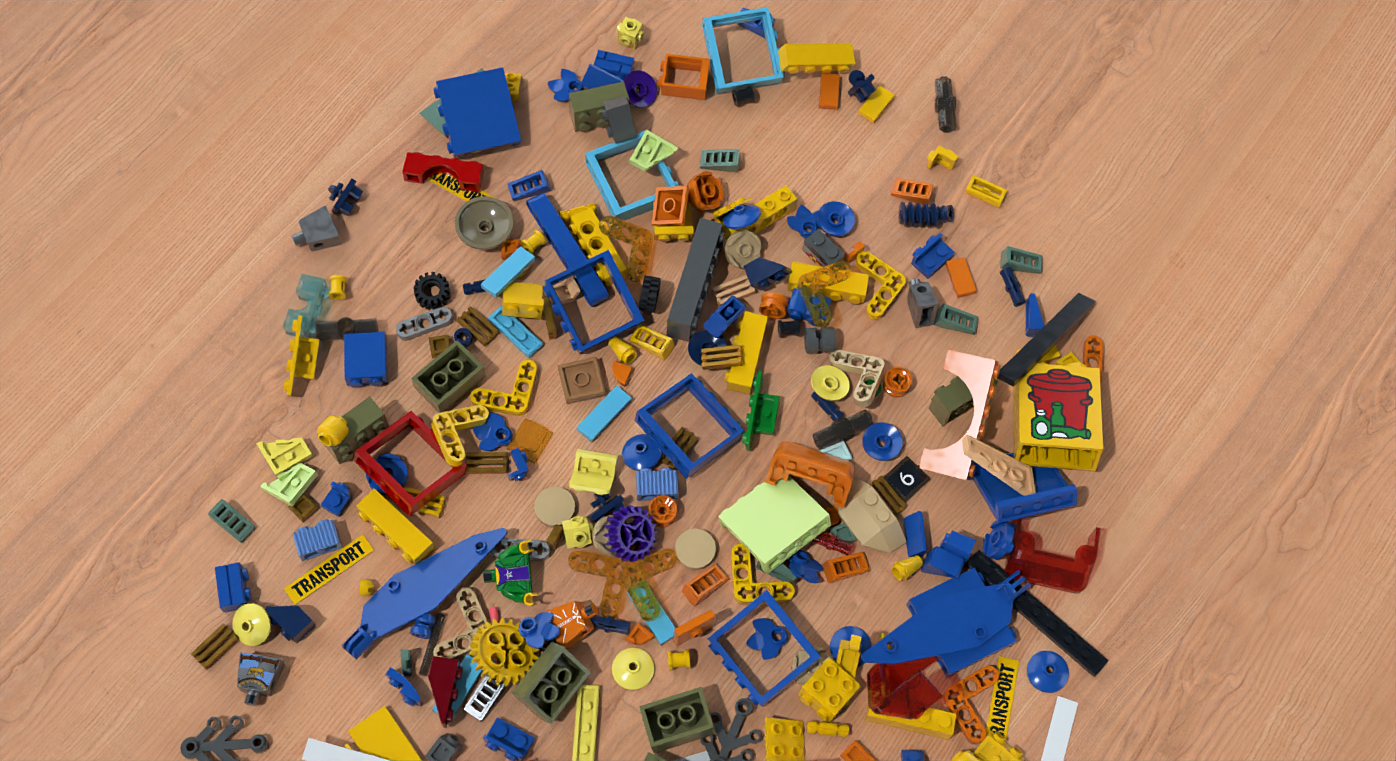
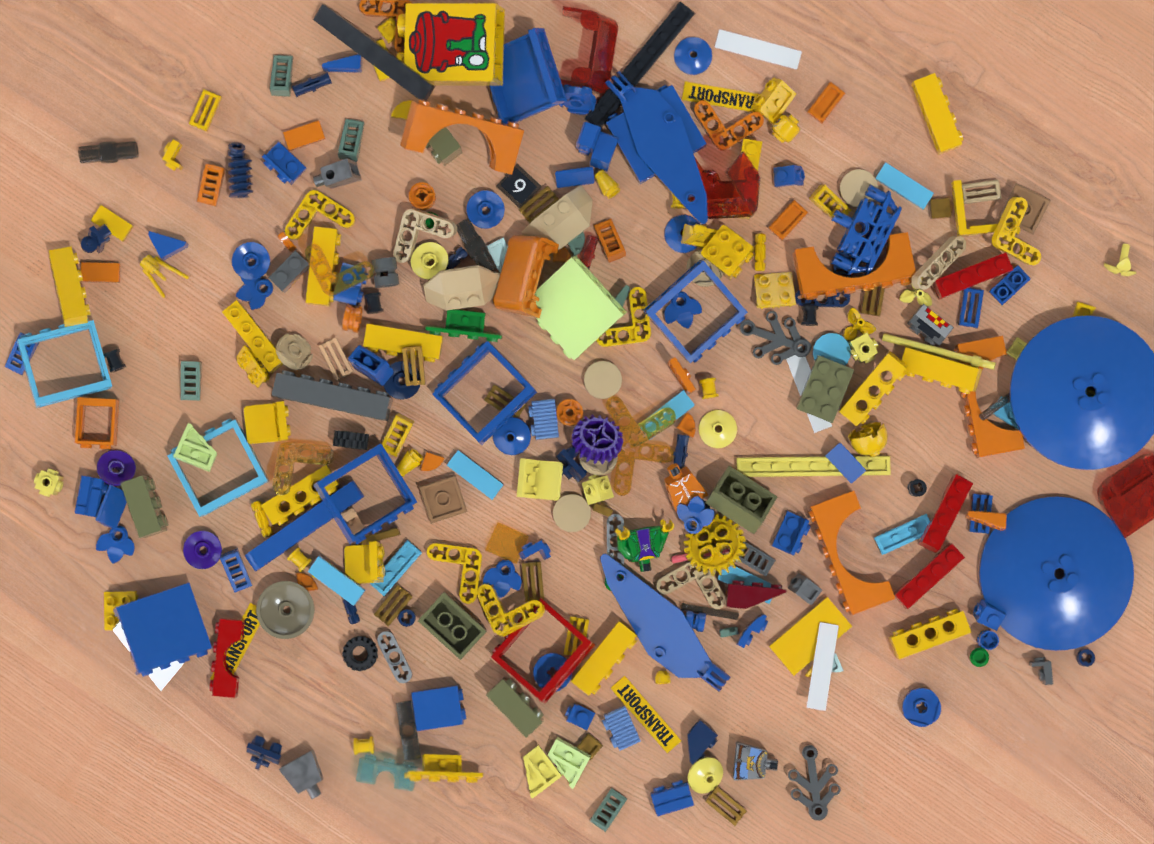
camera: 85 degrees left, 20 degrees up
(332, 430) = (527, 723): yellow head -> none
(438, 344) = (416, 639): pearl gold tile -> none
(552, 150) = (192, 550): none -> dark purple dish
(619, 119) = (163, 483): dark grey brick -> none
(670, 206) = (256, 425): orange slope -> none
(677, 720) = (766, 385): olive brick -> none
(695, 593) = (647, 380): orange slope -> none
(705, 191) = (233, 392): orange cylinder -> none
(741, 216) = (265, 353): blue dish -> none
(764, 272) = (317, 329): dark blue slope -> none
(801, 411) = (461, 287): none -> tan wedge
(804, 567) = (615, 277): blue plate -> none
(833, 133) = (150, 265): none -> yellow plant
(852, 145) = (166, 245): none -> blue slope
(1007, 469) = (512, 94): light nougat wing -> none

